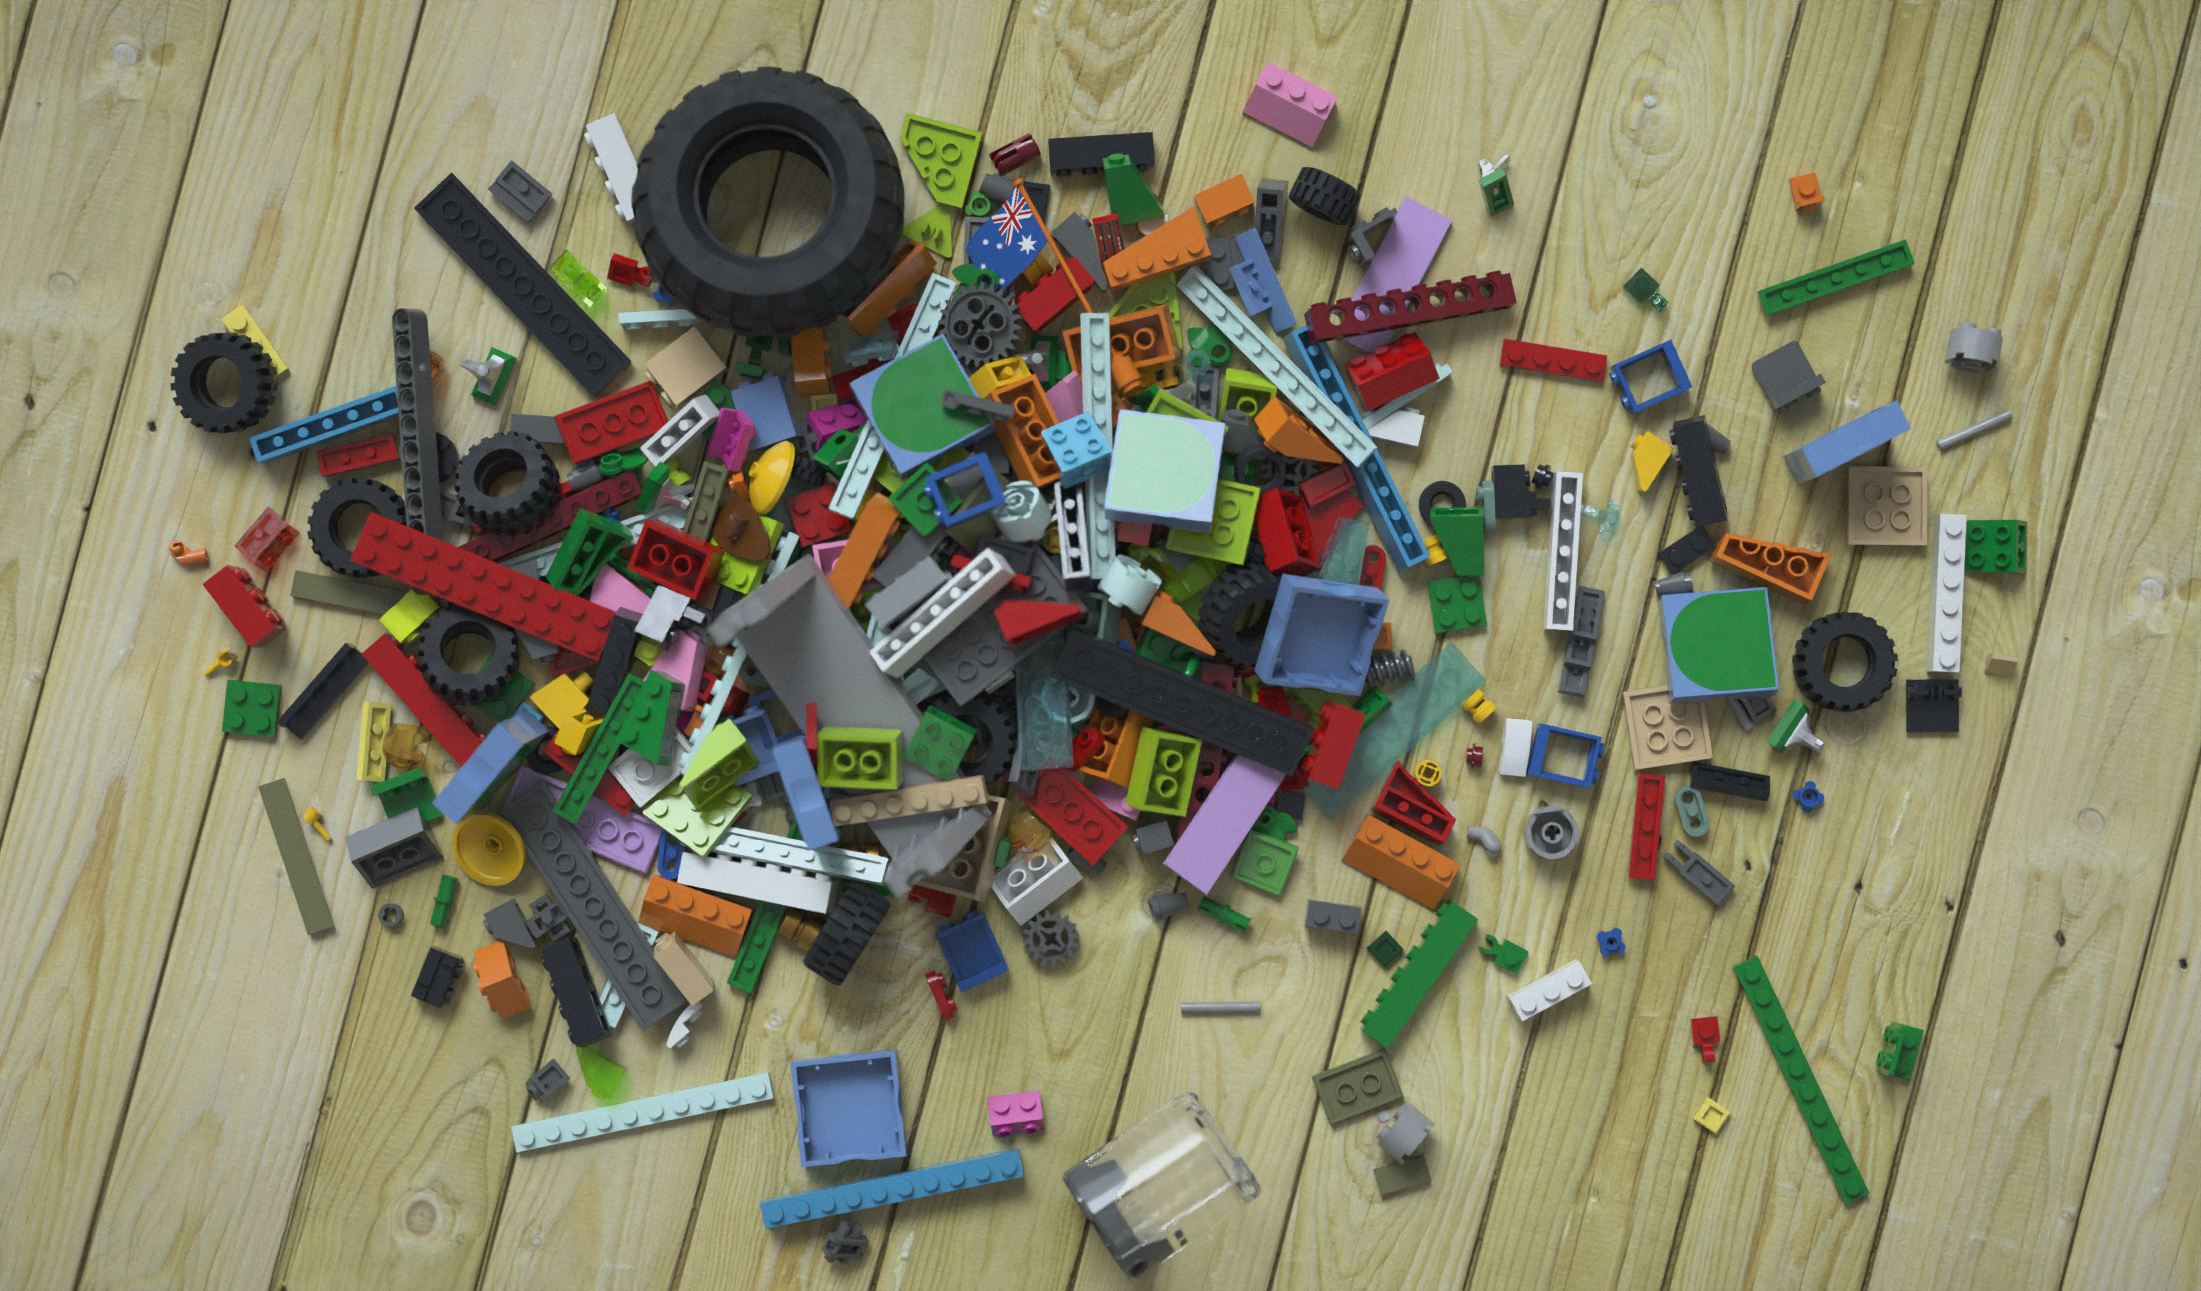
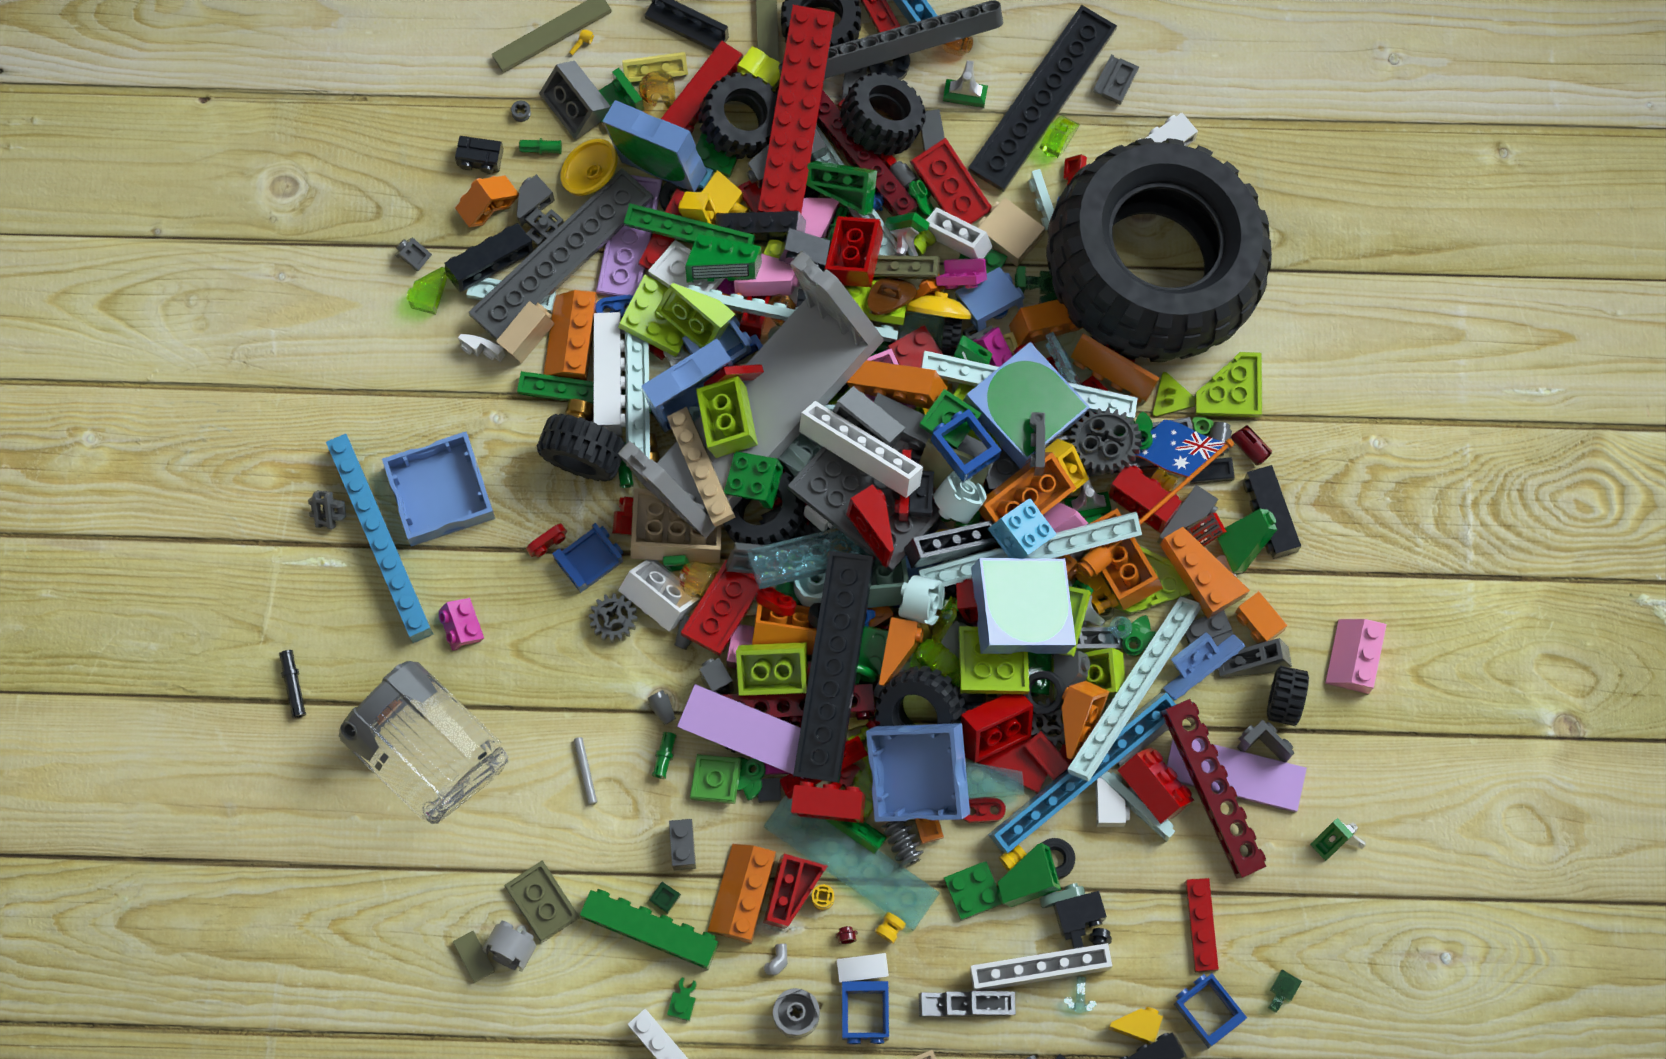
camera: 80 degrees right, 15 degrees down
(642, 1112) = (403, 333): light aqua plate -> none

